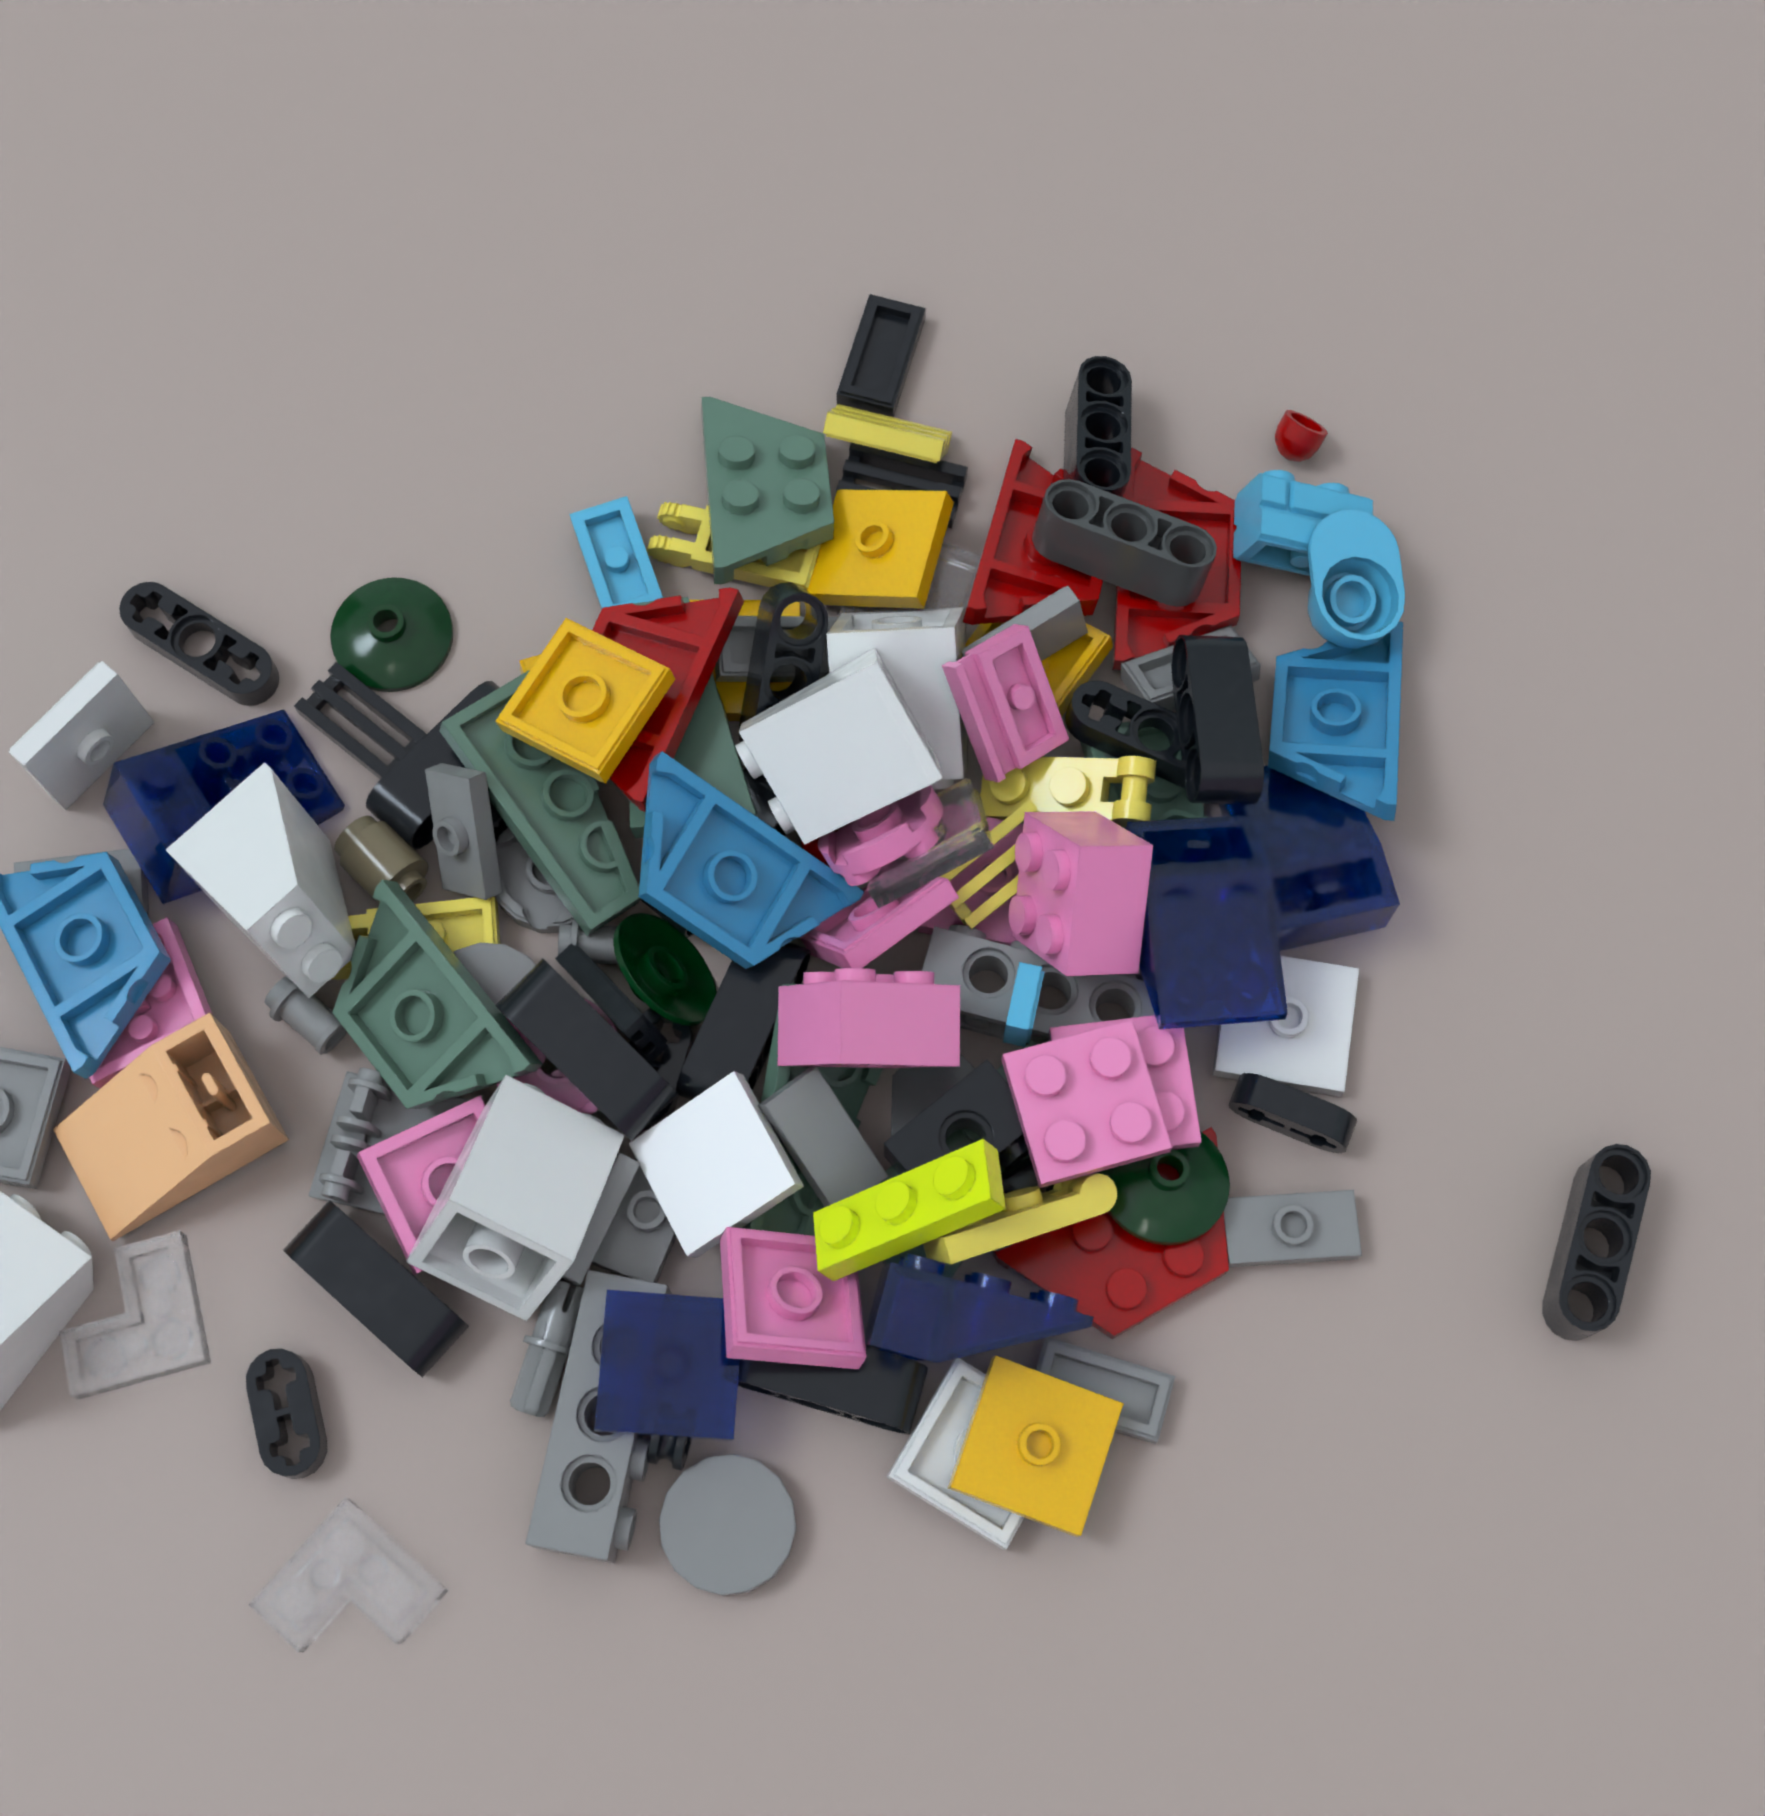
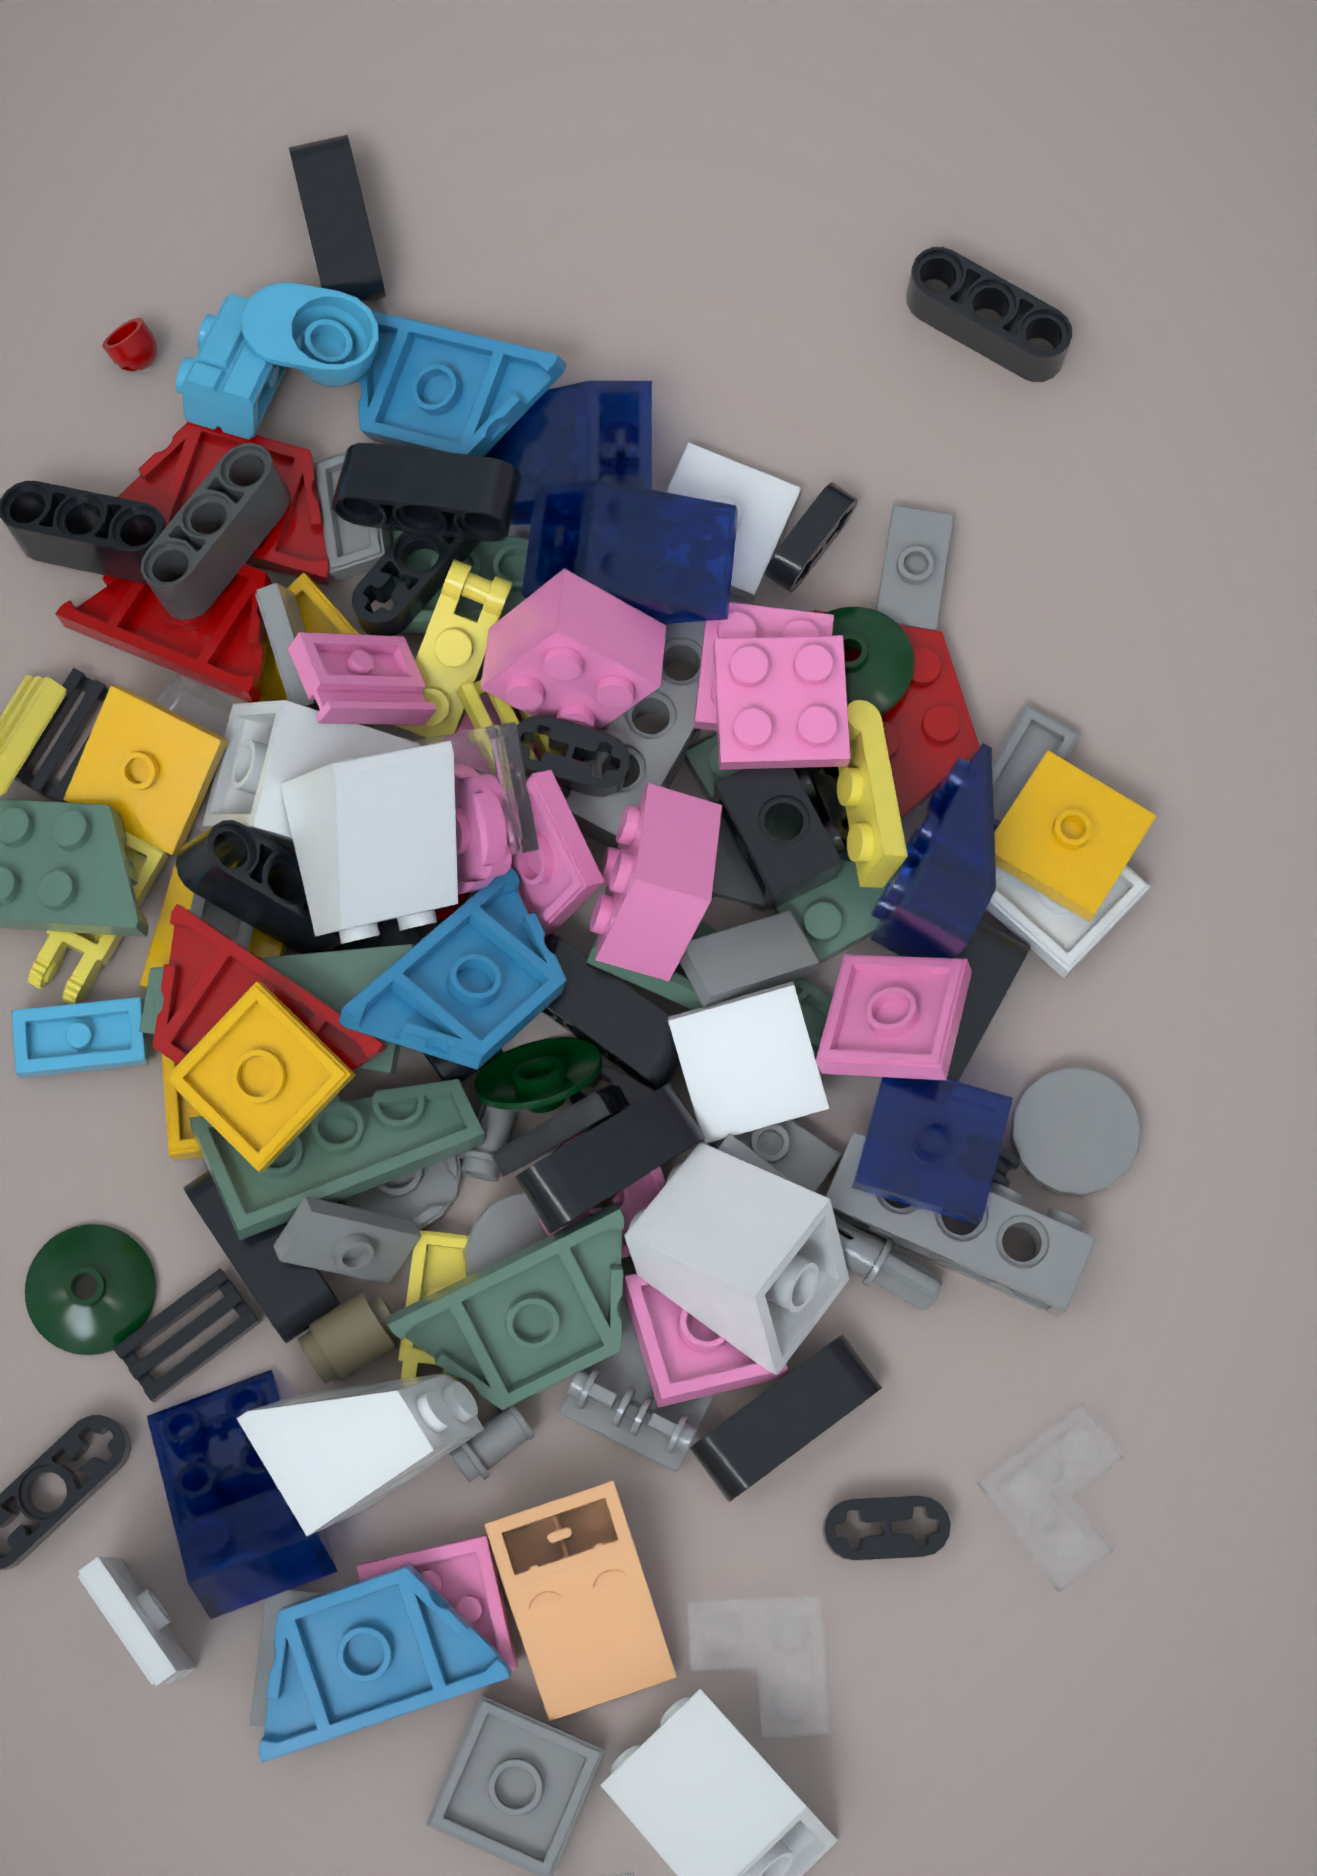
camera: 80 degrees left, 5 degrees up
(909, 1210) = (846, 884): neon yellow plate -> none
(998, 917) = (578, 742): none -> black beam
(1023, 1004) = (668, 738): medium azure tile -> none
(1486, 583) = (337, 218): none -> black beam

